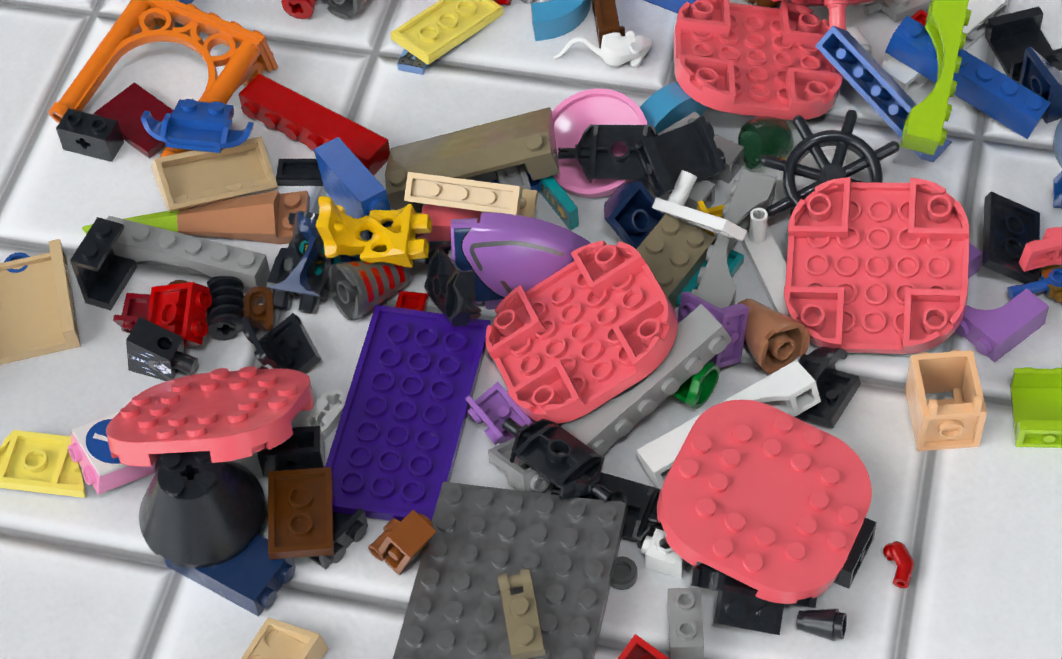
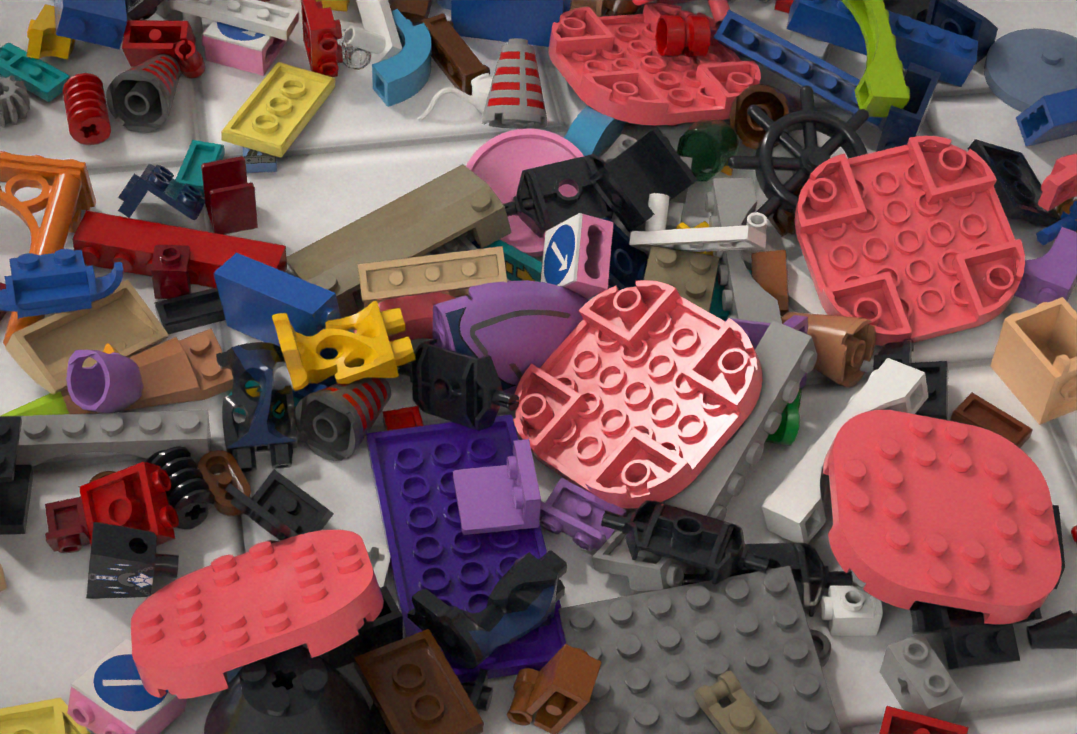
camera: 30 degrees left, 5 degrees down
(204, 214) = (107, 385): none -> medium lavender piece
(296, 137) = (171, 271): none -> dark red bracket
(322, 70) = (161, 183): none -> dark blue bracket
(365, 58) = (197, 154): none -> teal tile
(371, 88) = (228, 196): none -> dark red piece
(401, 468) = (514, 608): none -> black hips
(441, 381) = (499, 495): none -> medium lavender bracket
(593, 208) = (578, 255): none -> piece
(627, 51) = (515, 89): none -> light grey cone
(754, 269) = (771, 273): none -> dark orange tile
(789, 38) = (680, 35): none -> red wheel
(824, 116) = (770, 100): none -> reddish brown cone
(873, 439) = (983, 414): none -> copper tile
(962, 154) = (907, 122): none -> dark blue panel

